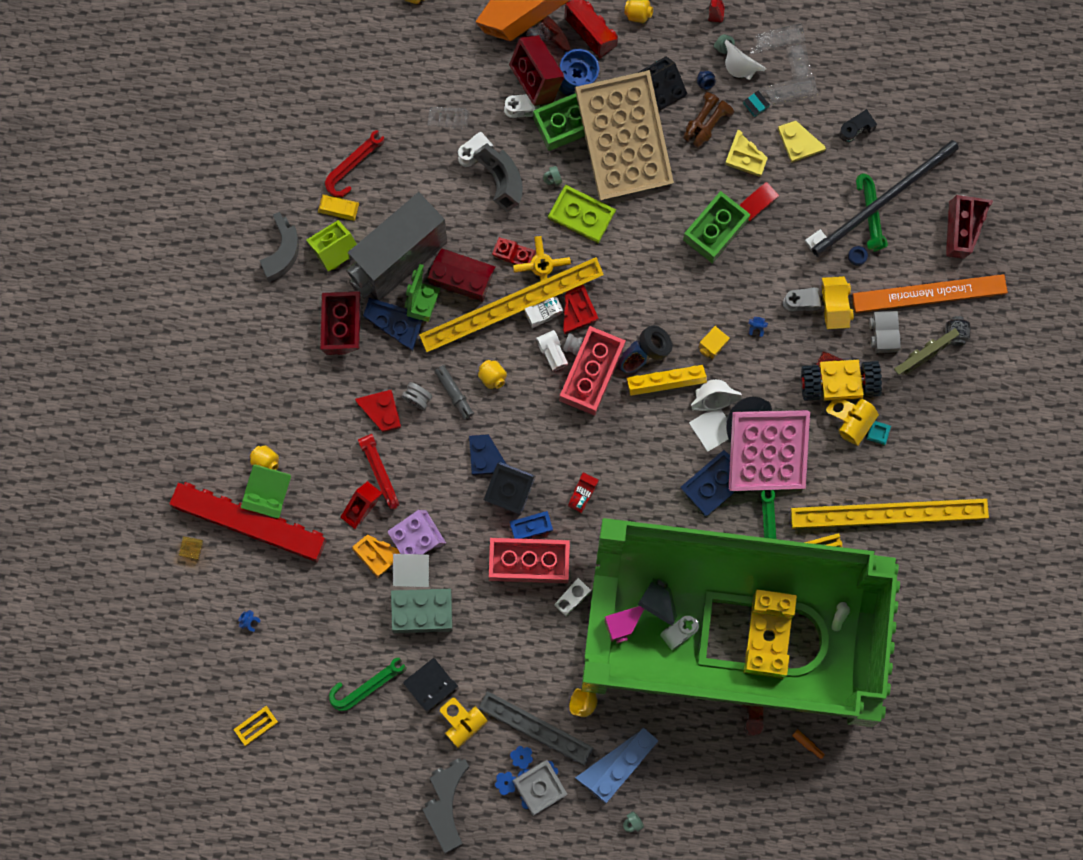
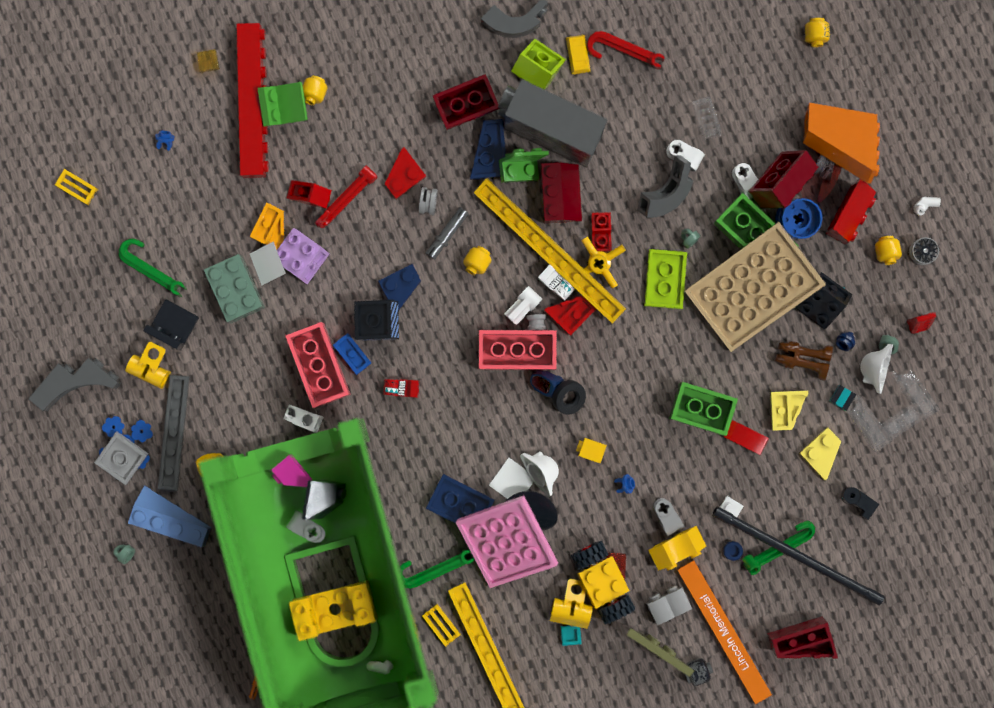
camera: 70 degrees right, 10 degrees up
(666, 380) = (538, 421): yellow plate -> none

